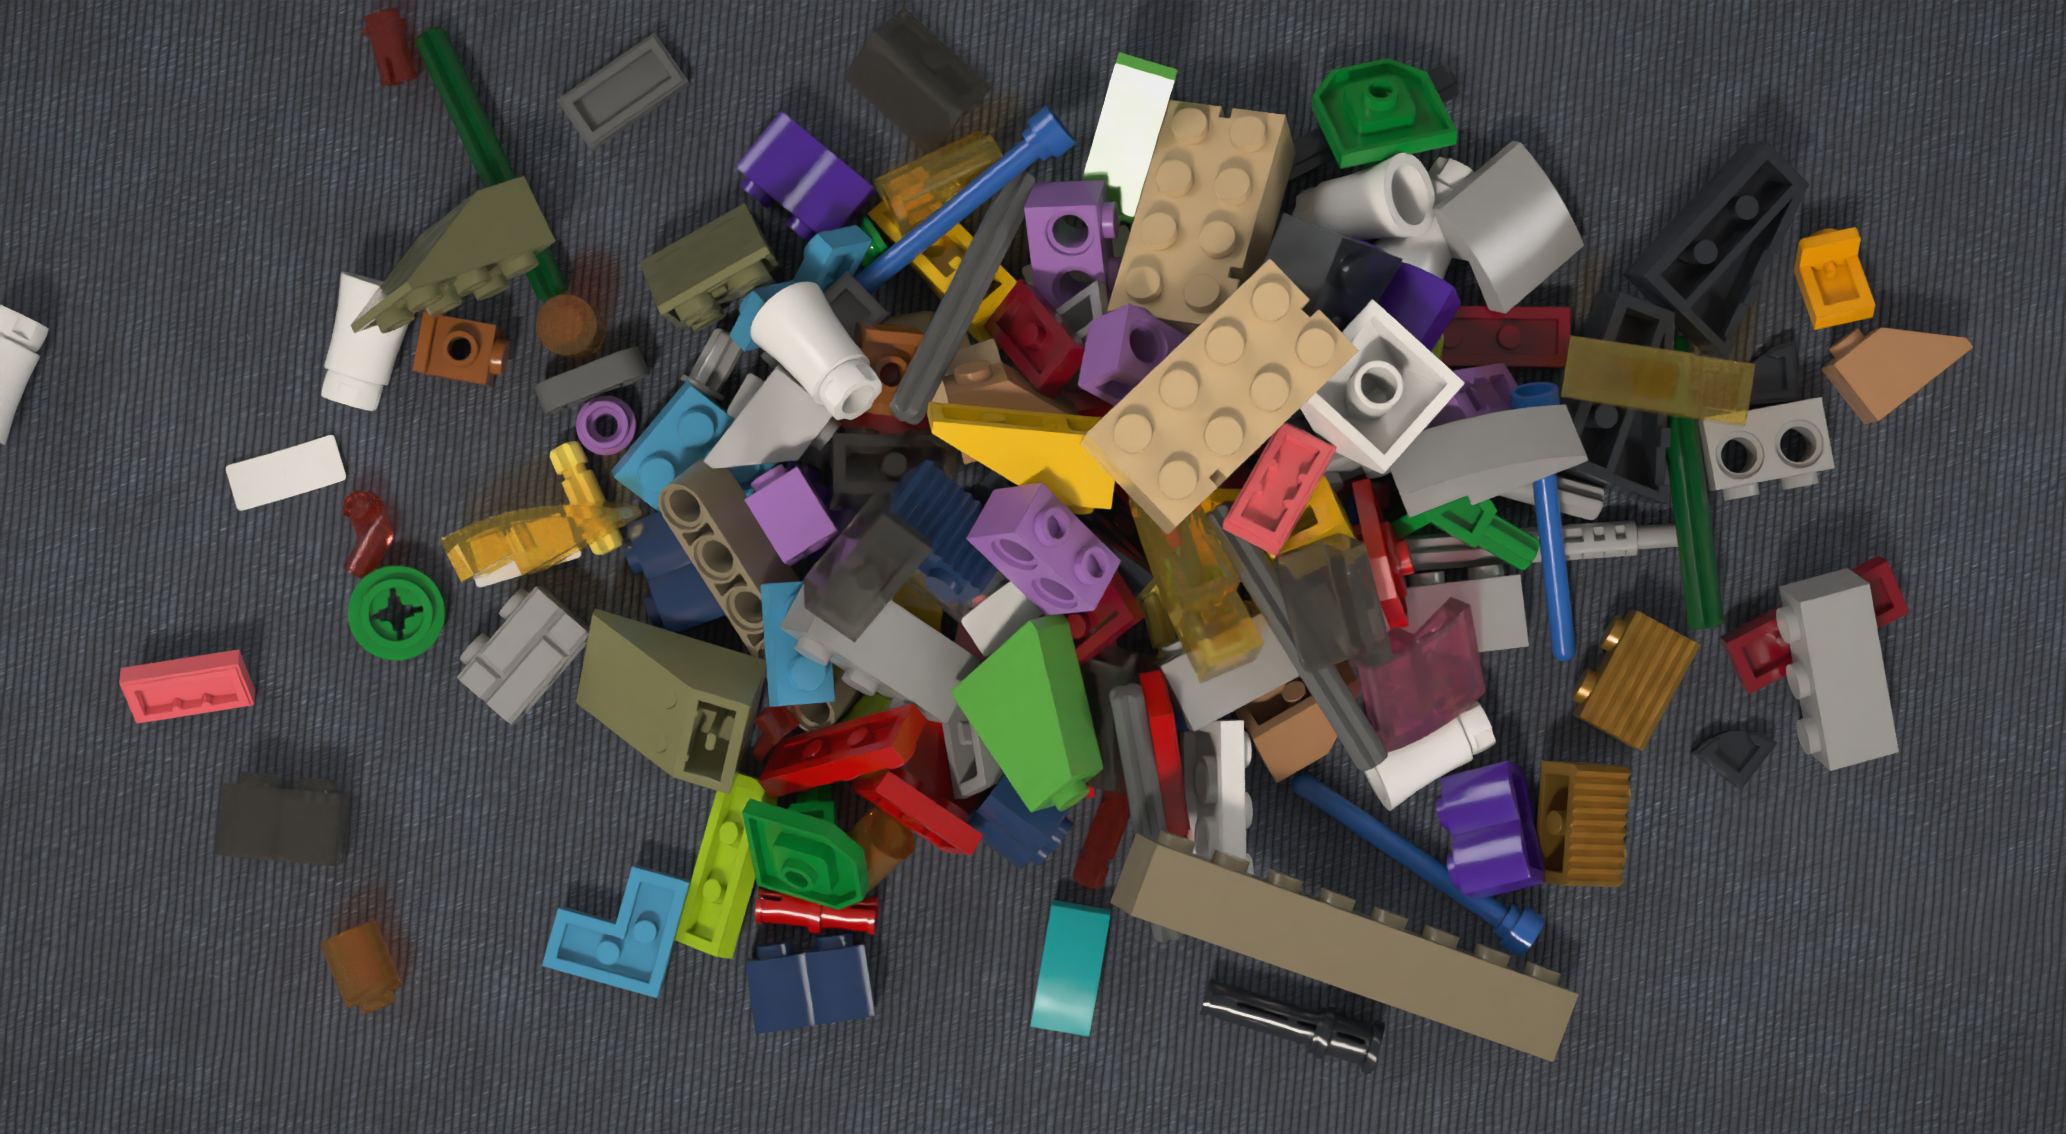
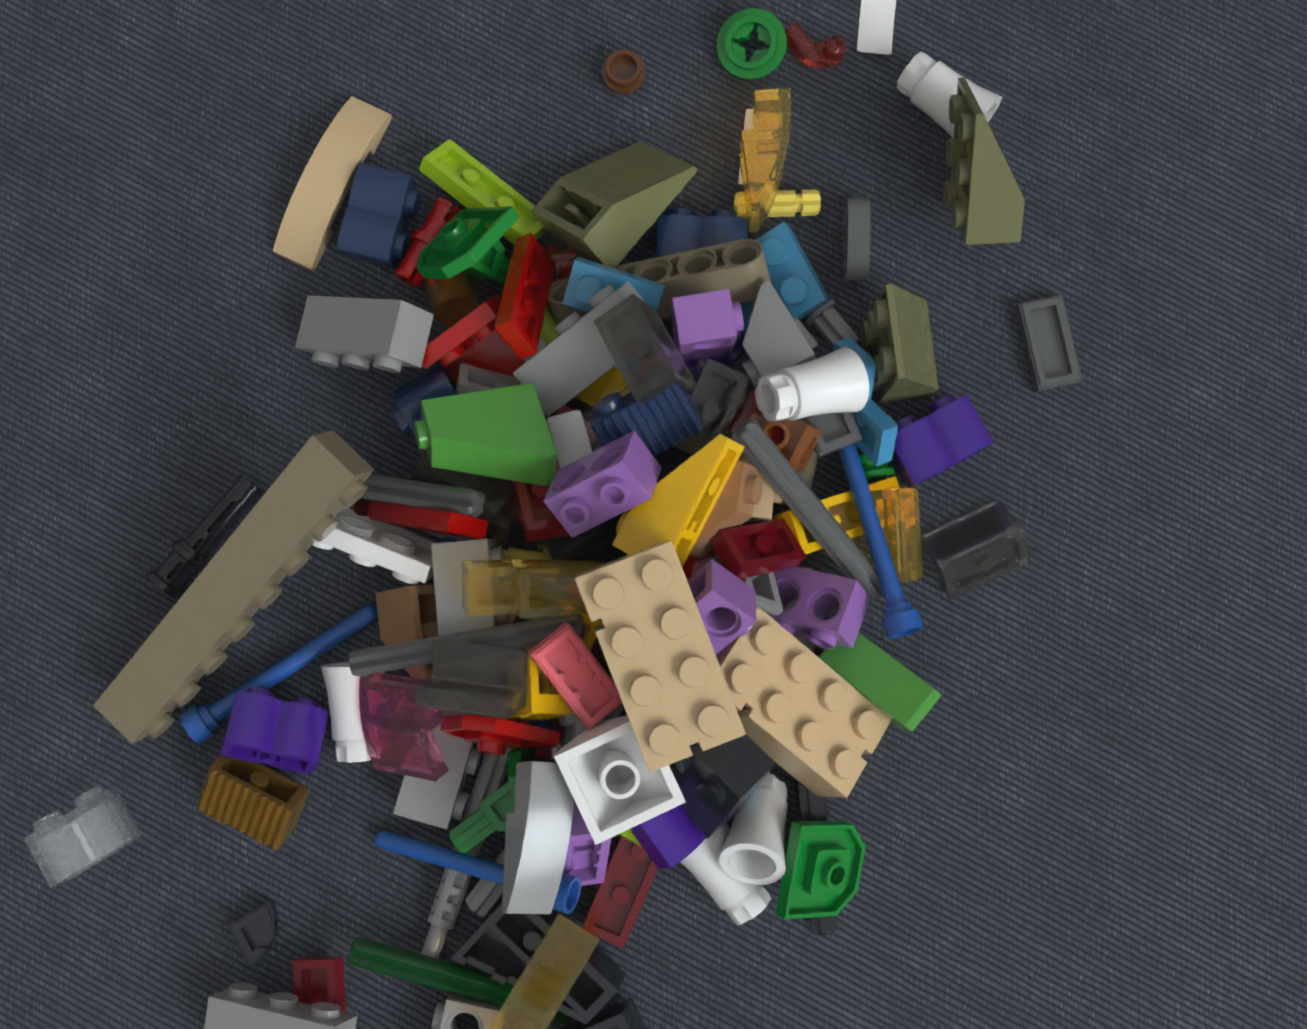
camera: 115 degrees right, 5 degrees down
(390, 47) = (1144, 197): clear red pin -> none
(434, 347) = (924, 144): dark orange brick -> none
(480, 140) = (1047, 233): dark green axle -> none
(496, 759) = (623, 71): none -> reddish brown plate
(524, 653) = (686, 115): light grey brick -> none
(570, 327) = (899, 237): clear orange brick -> none
(587, 425) = (823, 224): medium lavender plate -> none
(626, 951) = (456, 108): dark azure plate -> none
(789, 1066) = (327, 181): none -> tan slope
(969, 930) = (364, 332): none -> light grey brick
(1070, 968) = (311, 397): teal slope -> none
(1102, 840) = (387, 454): clear red axle -> none
(1508, 226) = (700, 927): light grey slope -> none
(1633, 678) = (339, 880): pearl gold brick -> none
(1711, 1008) = (83, 836): none -> clear brick

